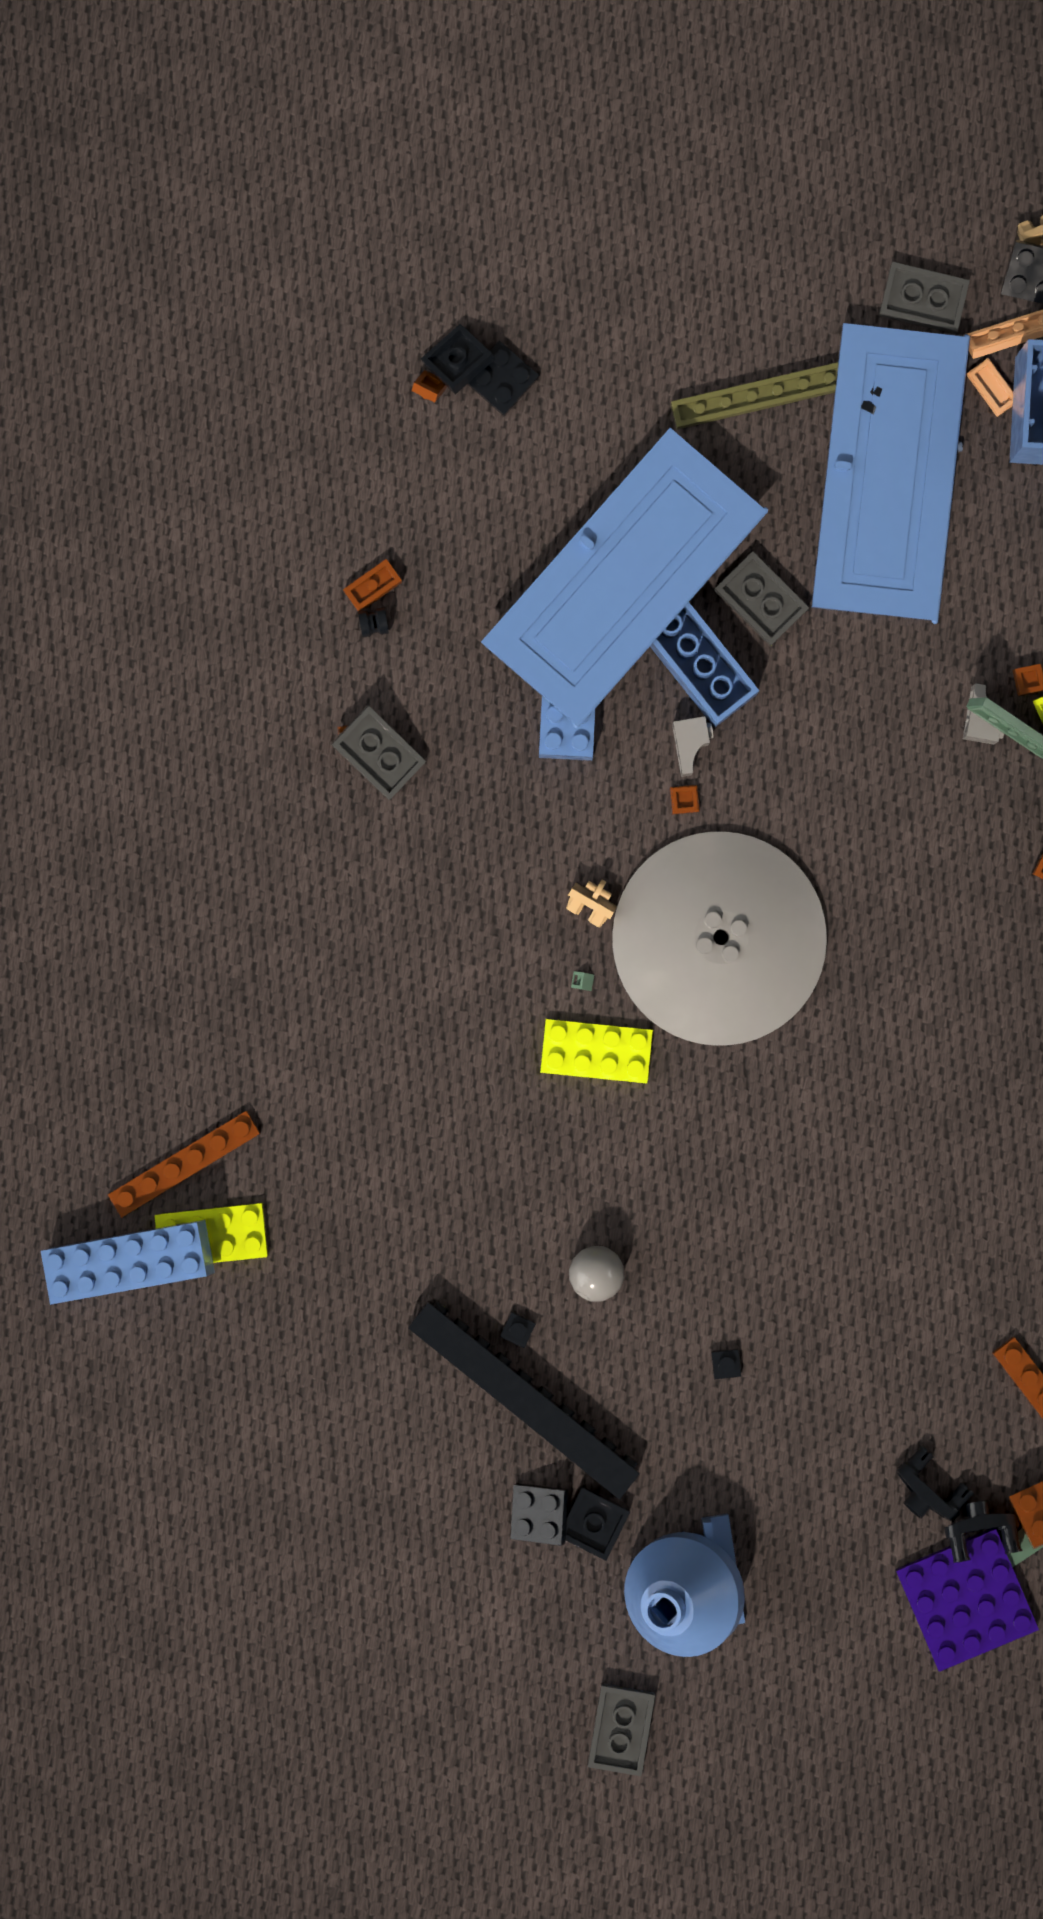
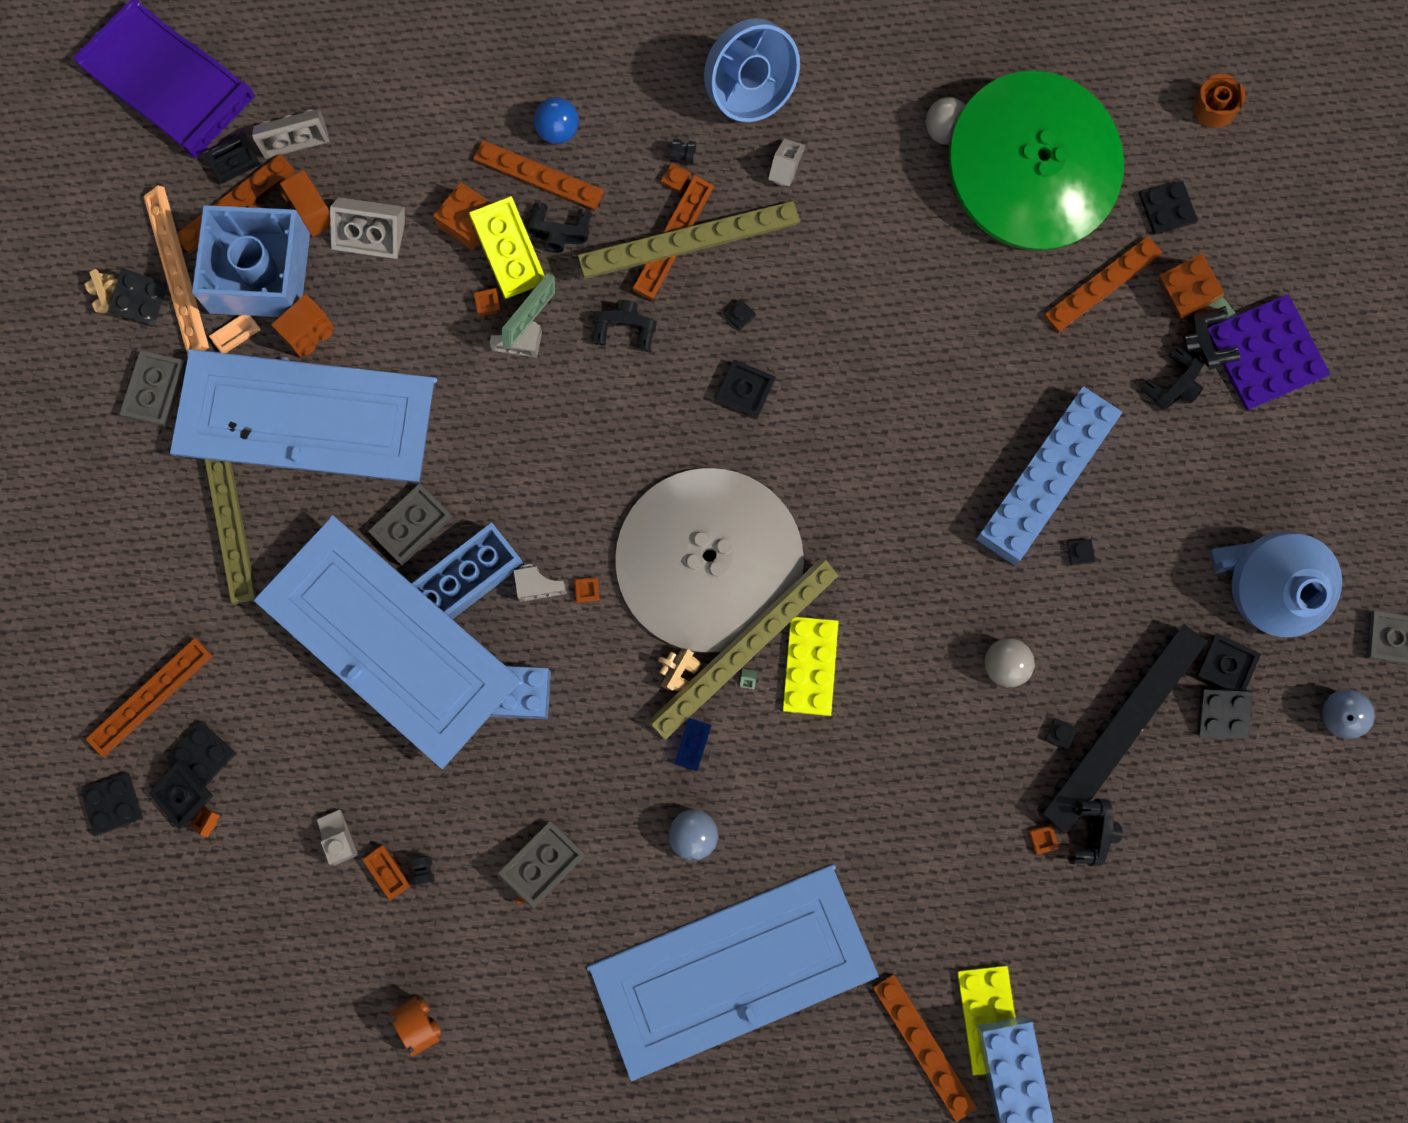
camera: 85 degrees left, 10 degrees down
(212, 621) = (415, 1026): none -> dark orange brick
(265, 960) = (732, 972): none -> medium blue door
(401, 1303) = (1043, 839): none -> dark orange tile
(407, 1367) = (1101, 834): none -> black connector
(409, 529) = (336, 838): none -> light grey arch
(409, 917) = (693, 835): none -> sand blue piece
(448, 284) = (111, 804): none -> black plate
(508, 918) = (693, 744): none -> clear blue plate
(536, 1652) = (1348, 714): none -> sand blue piece
(565, 317) = (149, 697): none -> dark orange plate
(616, 976) = (743, 648): none -> olive plate
(815, 1331) = (1049, 476): none -> medium blue brick
(921, 981) = (745, 389): none -> black plate
(996, 467) = (303, 326): none -> dark orange brick
(1012, 842) = (627, 315): none -> black connector
(1014, 976) = (740, 314): none -> black plate

